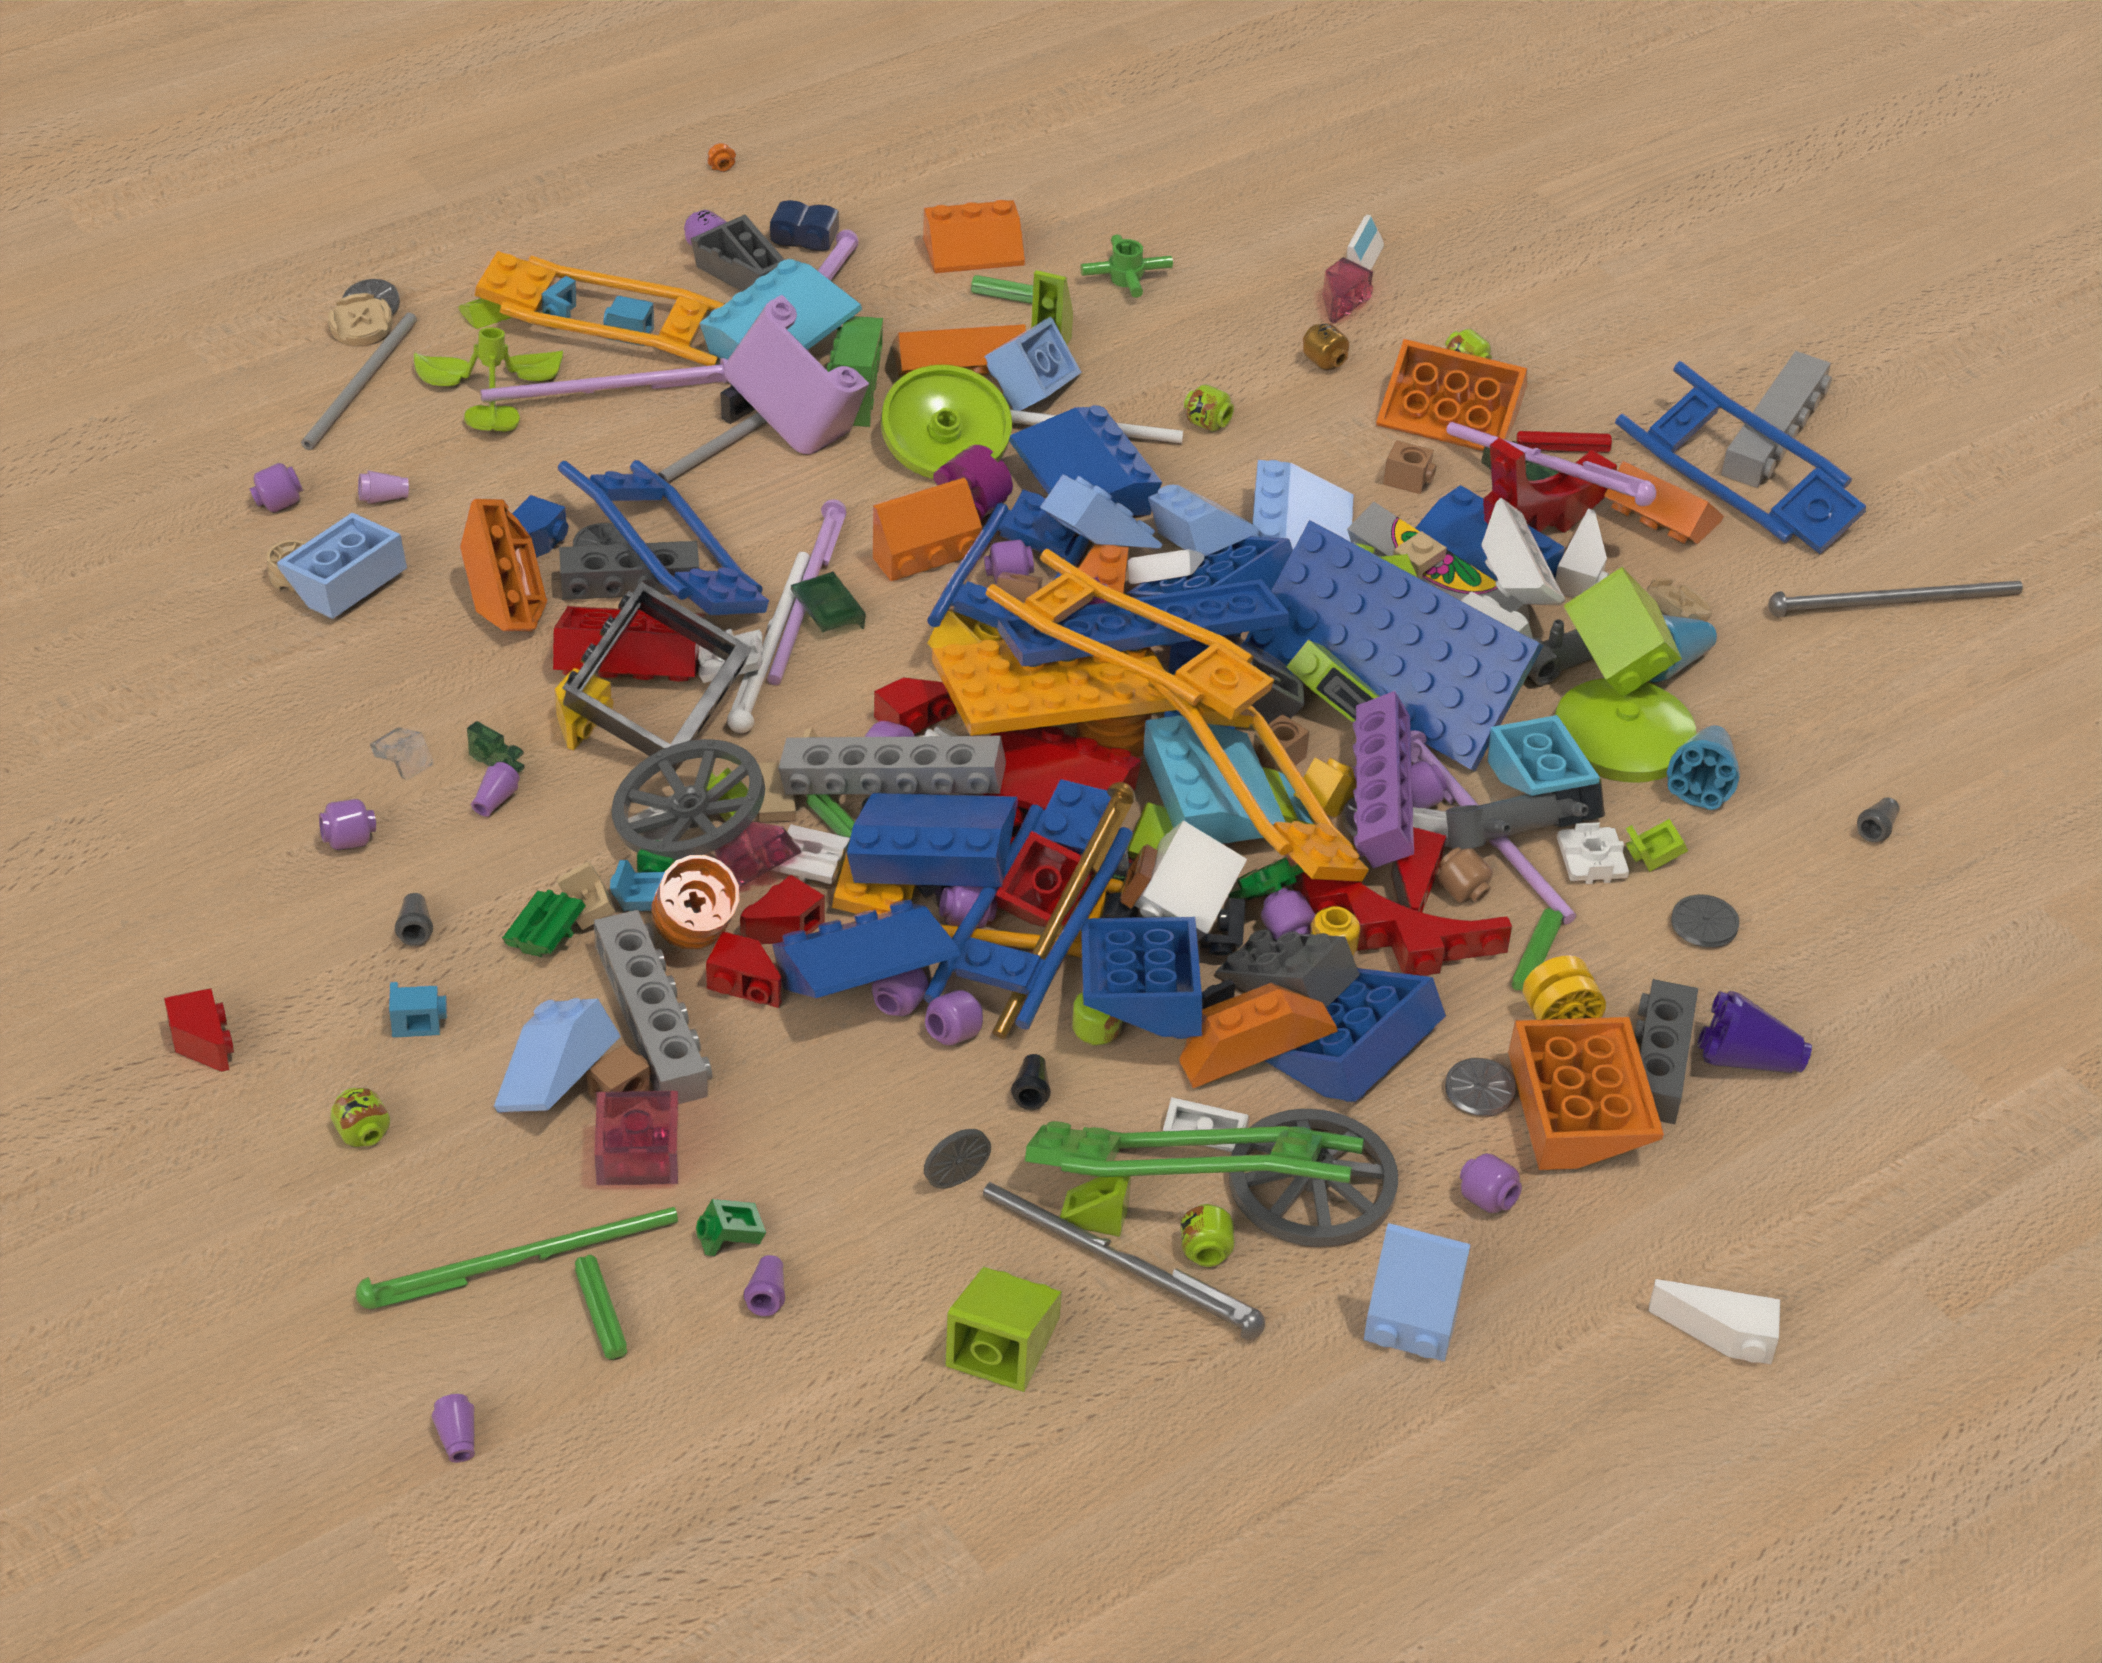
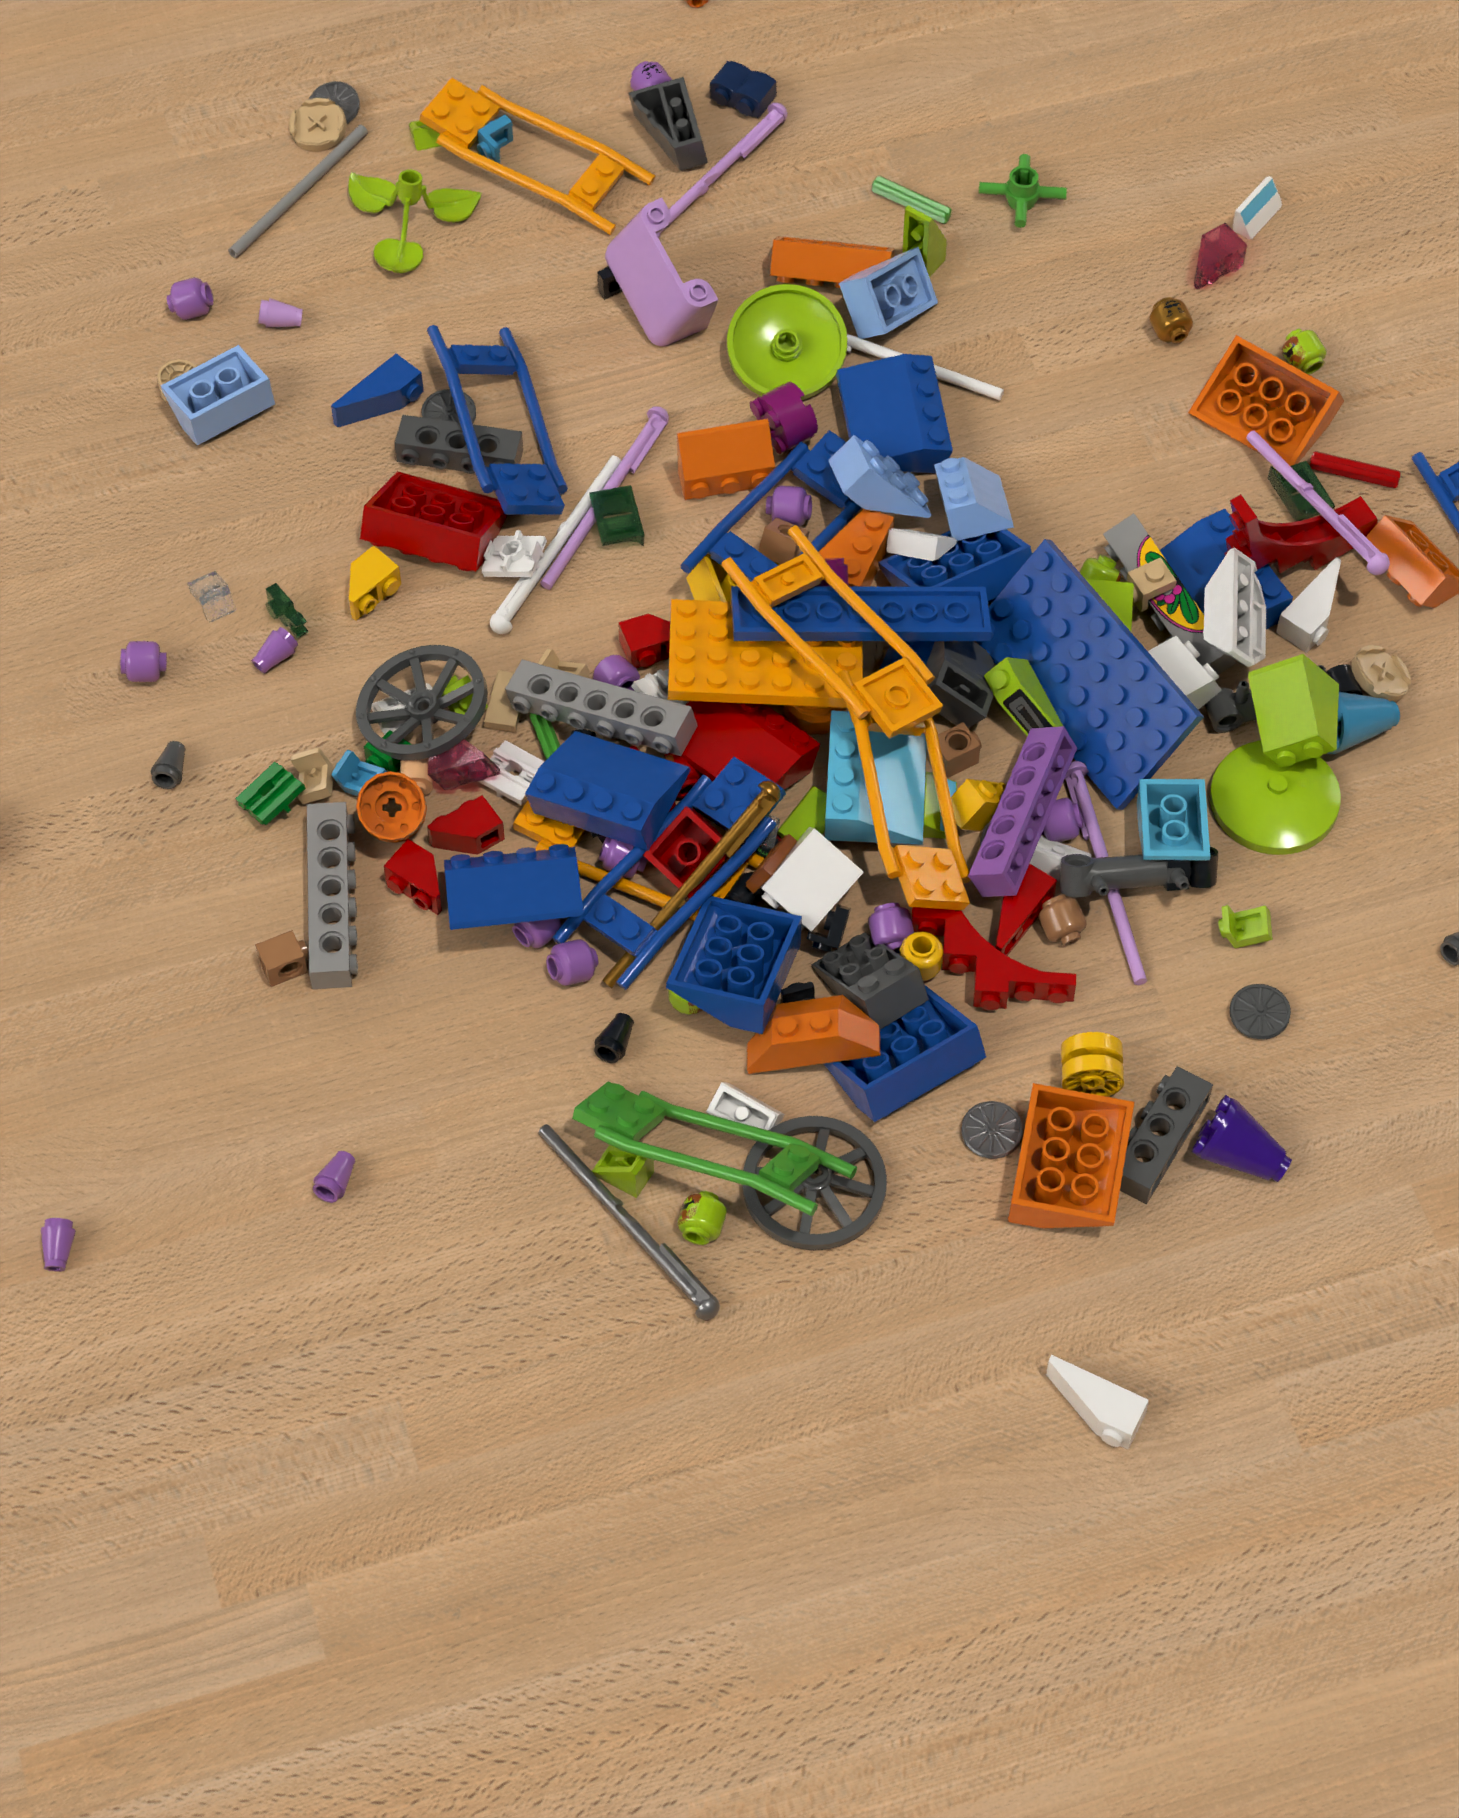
camera: 20 degrees right, 15 degrees up
(360, 1117) = (69, 944): lime head -> none
(416, 1010) = (143, 855): dark azure brick -> none
(453, 1275) = (98, 1106): bright green bar -> none
(502, 567) = (347, 430): orange wedge -> none
(554, 1053) = (233, 926): light blue slope -> none
(601, 1307) = (201, 1163): bright green axle -> none
(630, 315) = (550, 168): dark azure brick -> none
(637, 1138) = (275, 1019): clear pink brick -> none
(656, 379) = (553, 240): lavender bar -> none
(685, 623) = (403, 528): black window -> none
(712, 447) = (596, 315): light grey piece -> none
(729, 1222) = (324, 1113): green bracket -> none
(817, 301) = (694, 187): medium azure slope -> none
(860, 347) = (732, 257): bright green wedge -> none
(957, 1158) = (522, 1100): dark grey wheel -> none
(973, 236) = (892, 131): orange slope -> none
(1001, 1327) = (504, 1261): lime slope -> none
(1209, 407) = (1035, 369): lime head -> none
(1266, 880) = (878, 889): green piece -> none
(1292, 496) = (1071, 505): light blue slope -> none
(1409, 467) = (1194, 472): medium nougat brick -> none
(1416, 1292) = (841, 1323): light blue slope -> none
(1490, 1183) = (956, 1227): medium lavender head -> none
(1538, 946) = (1099, 1004): bright green axle -> none
(1592, 853) = (1176, 932): white piece -> none
(1704, 769) = (1324, 856): dark azure cone -> none

